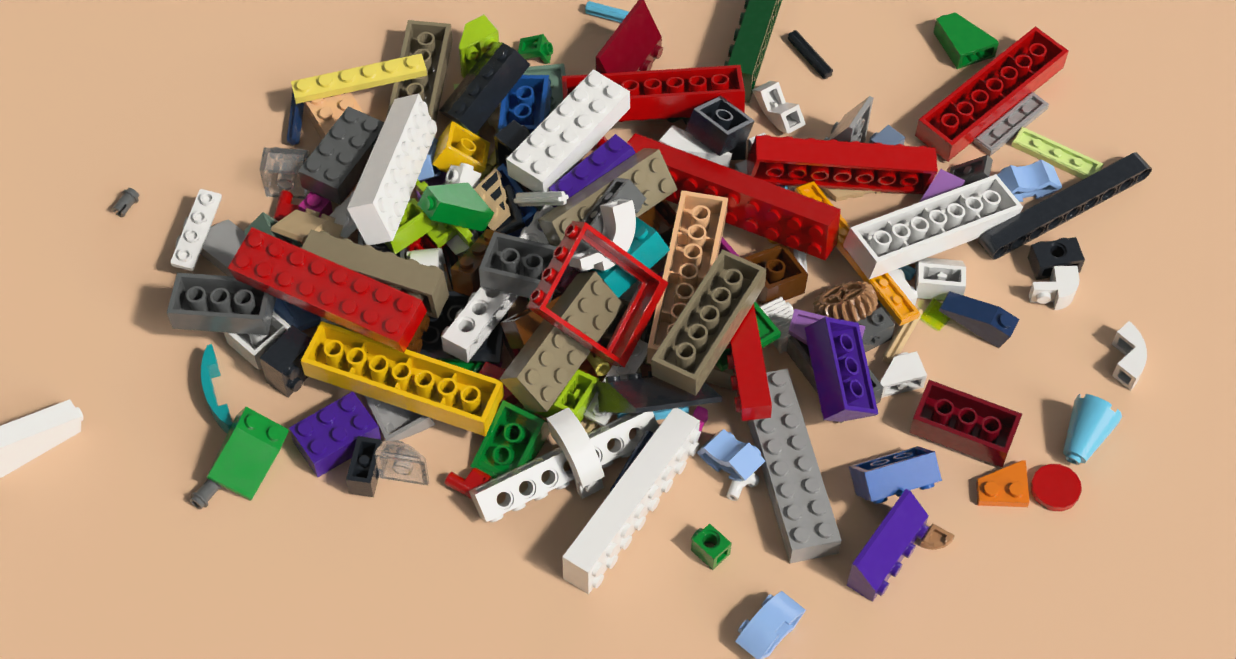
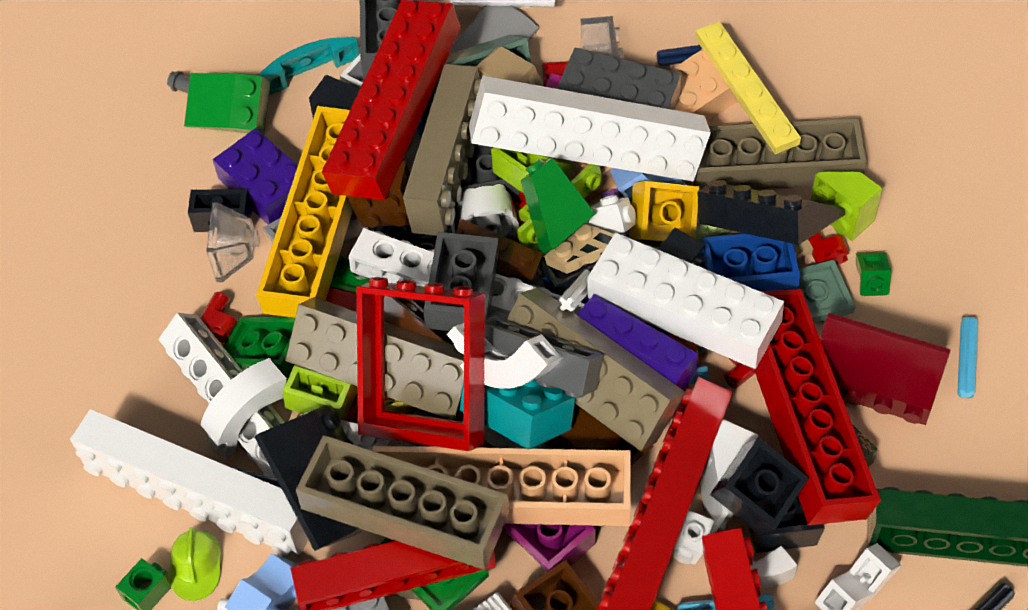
camera: 85 degrees right, 0 degrees up
(690, 513) = (195, 564): none -> lime piece
(701, 414) = (323, 554): dark pink hand -> none

